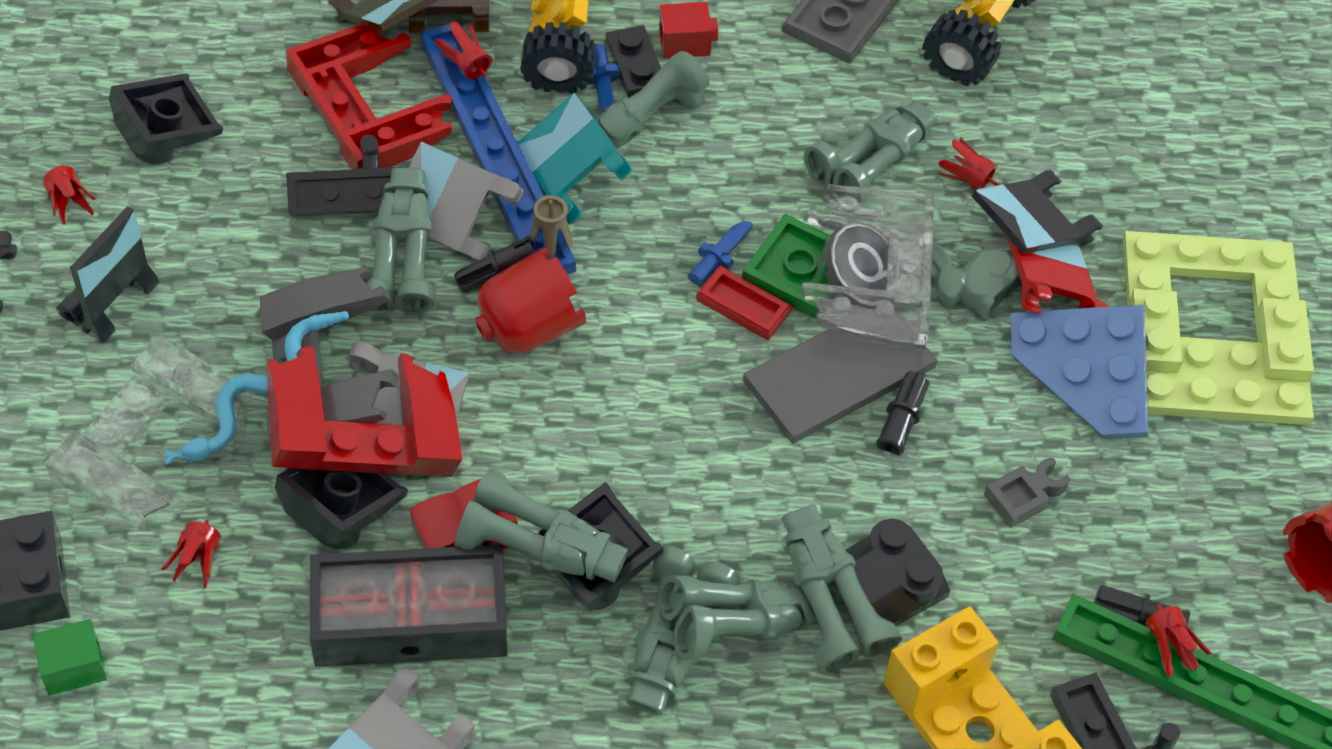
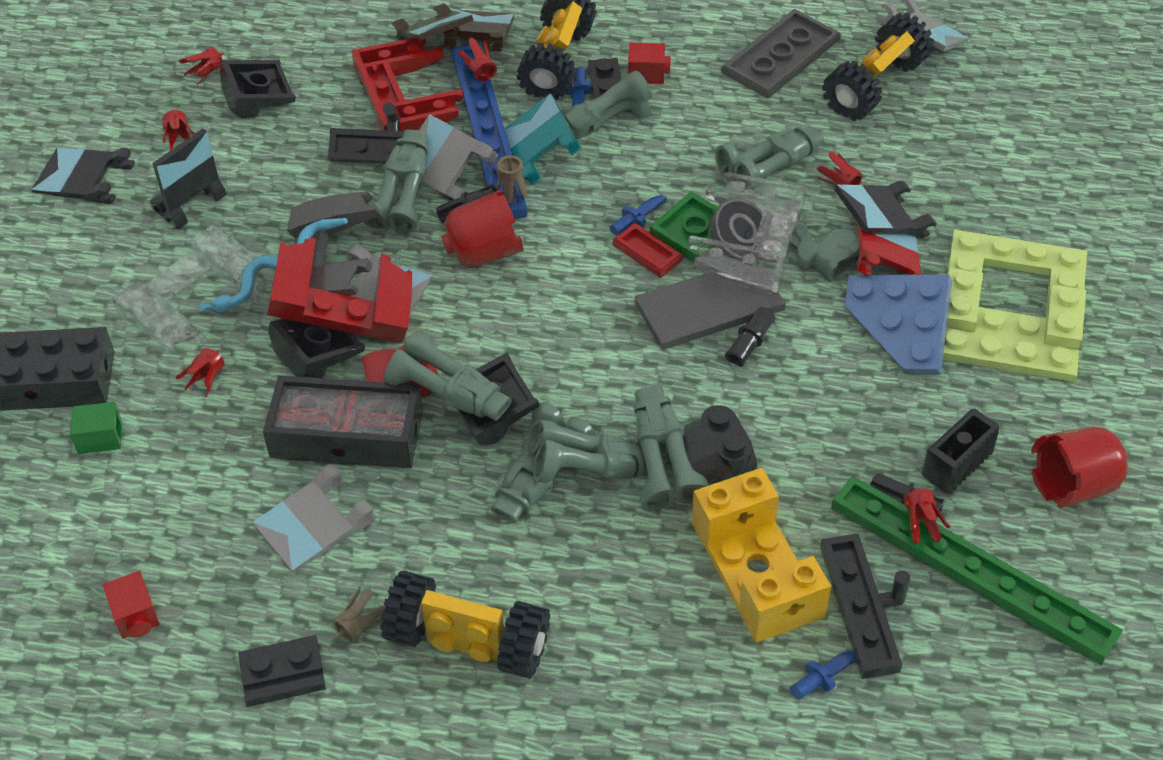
camera: 15 degrees right, 5 degrees down
(83, 83) = (209, 62): none -> red piece
(1023, 495) = (831, 404): dark grey plate -> none
(1198, 543) = (960, 450): none -> black brick

